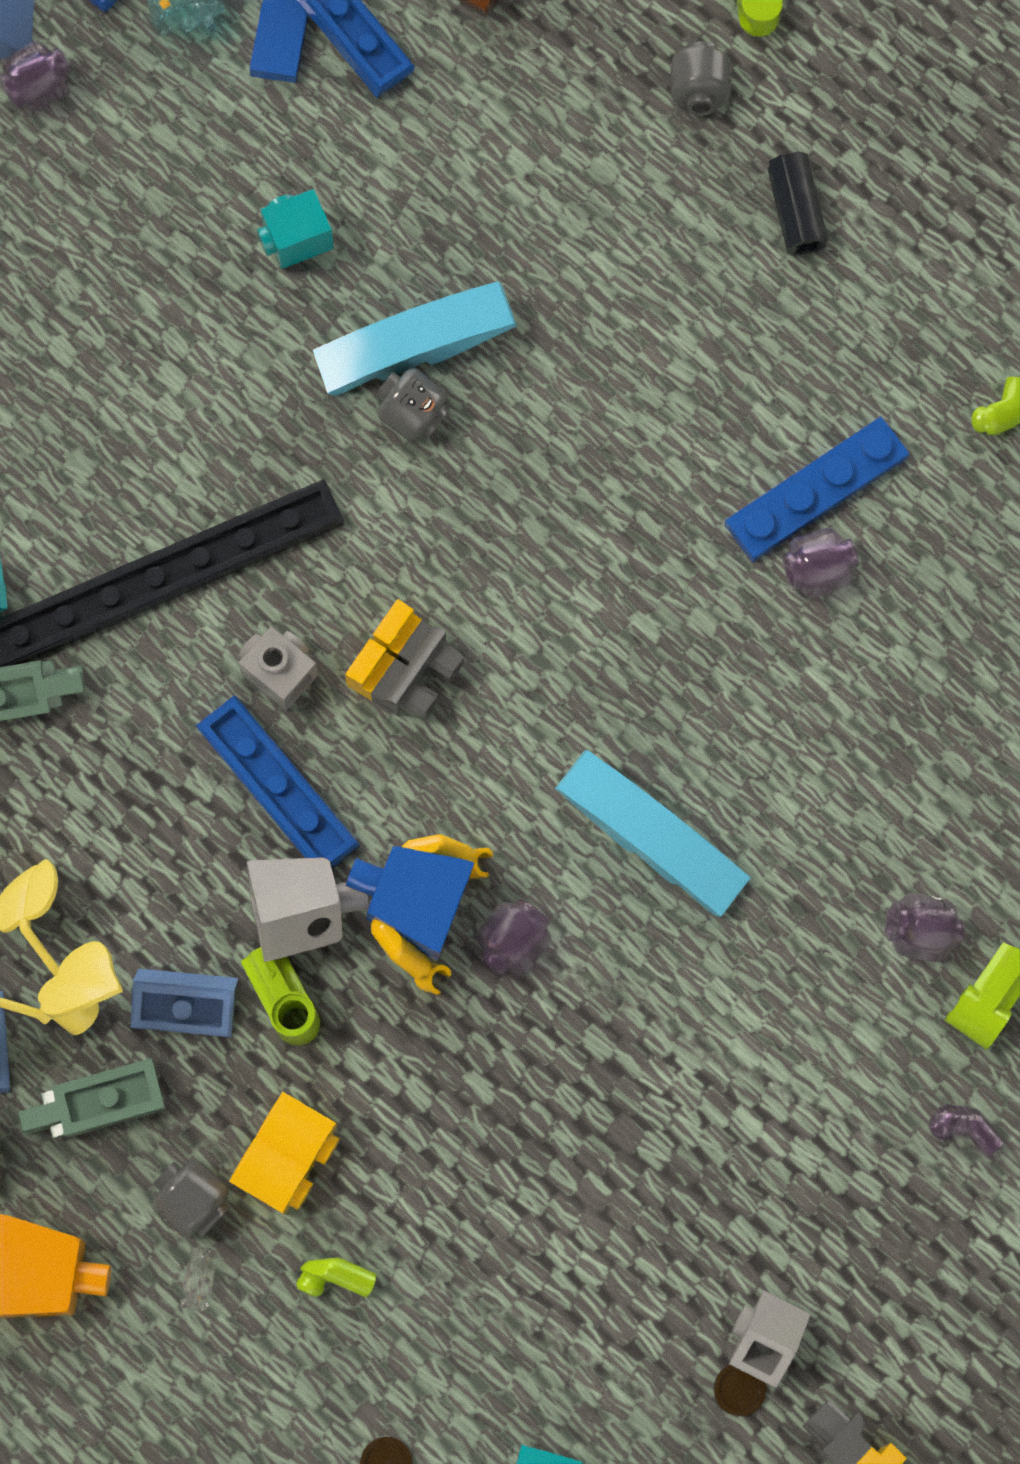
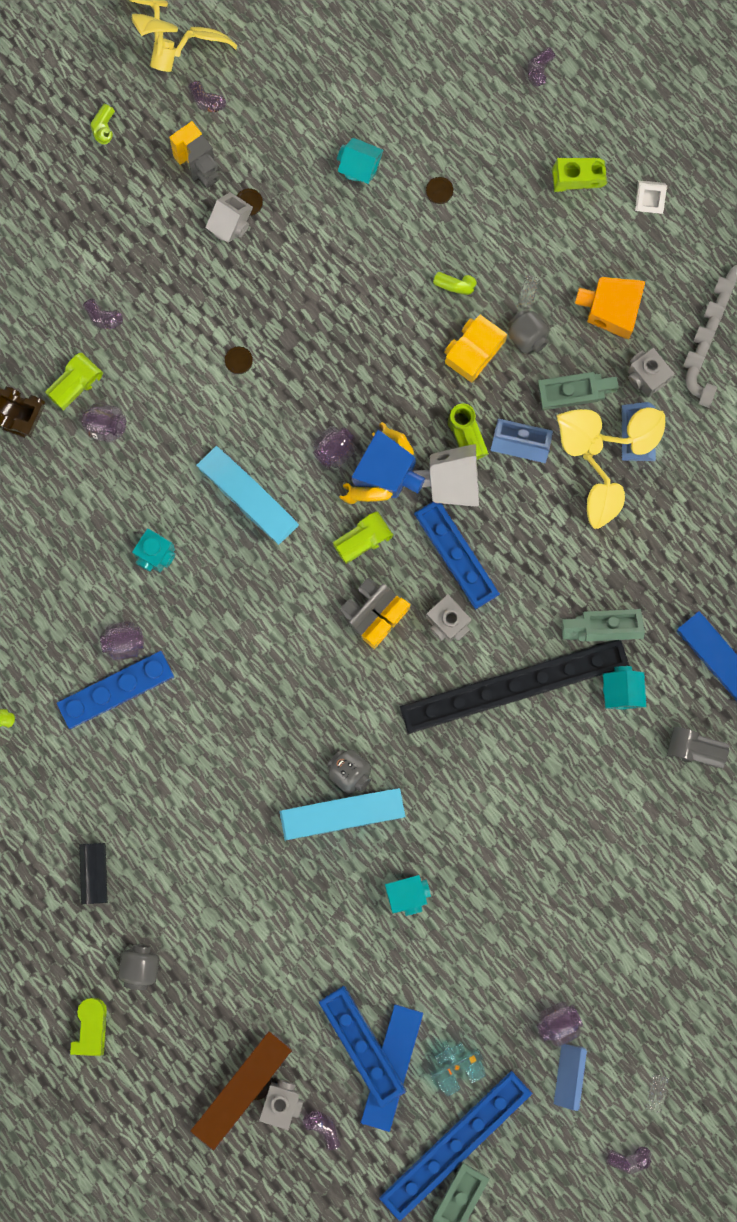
camera: 170 degrees left, 5 degrees up
(435, 793) = (365, 536): none -> lime piece
(708, 1081) = (238, 360): none -> dark brown piece
(794, 712) = (154, 552): none -> teal brick

